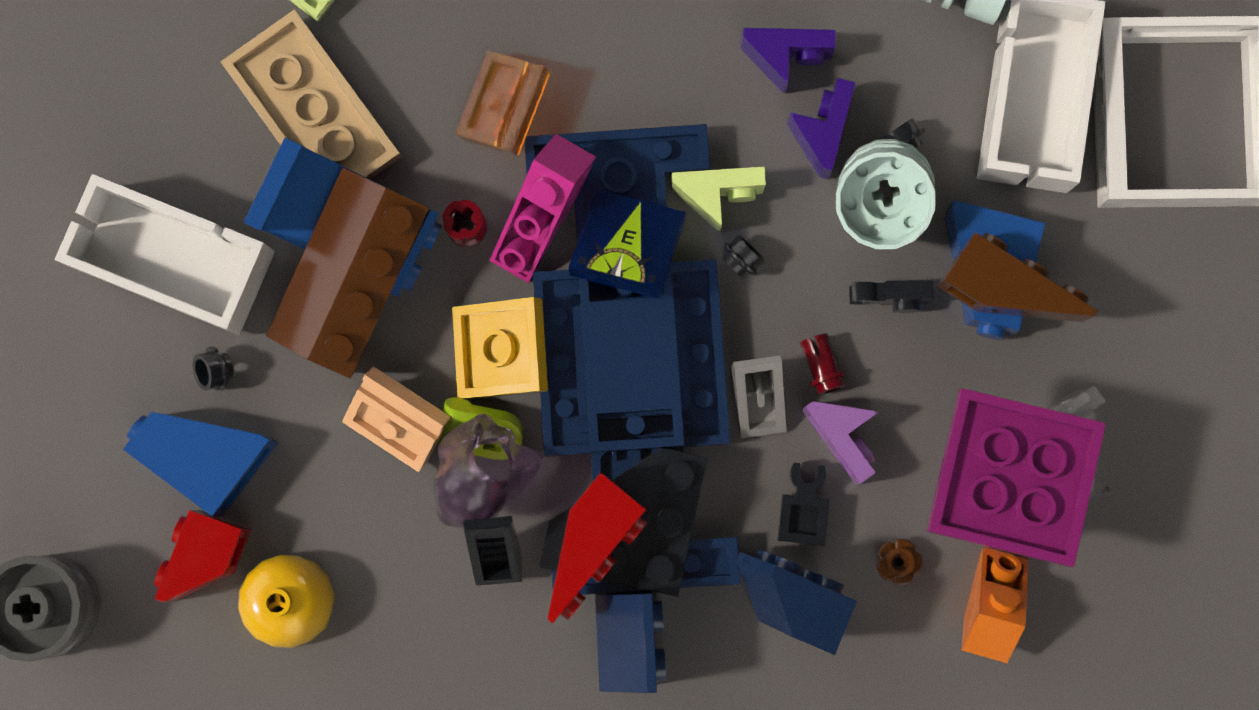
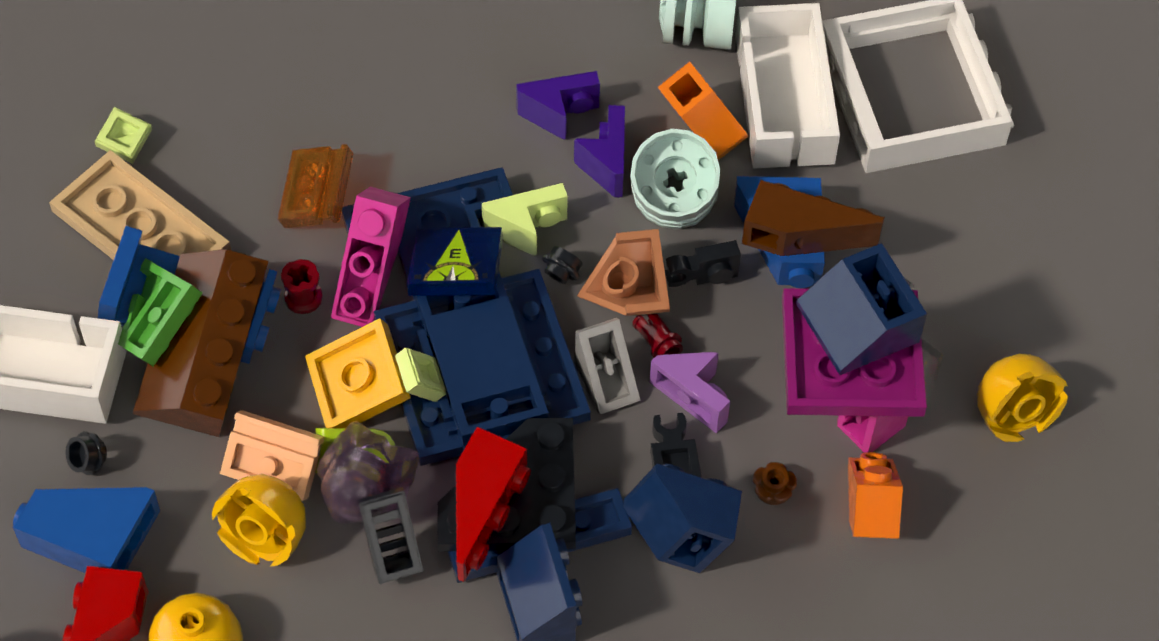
camera: 20 degrees left, 25 degrees down
(304, 238) = (157, 313): none -> bright green wing
(374, 488) = (260, 519): none -> yellow cylinder
(562, 370) = (420, 374): none -> yellowish green tile
(809, 297) = (630, 275): none -> nougat slope
(940, 103) = (703, 110): none -> orange slope
(1036, 452) = (863, 310): none -> dark blue slope
(1180, 527) = (1020, 395): none -> yellow cylinder

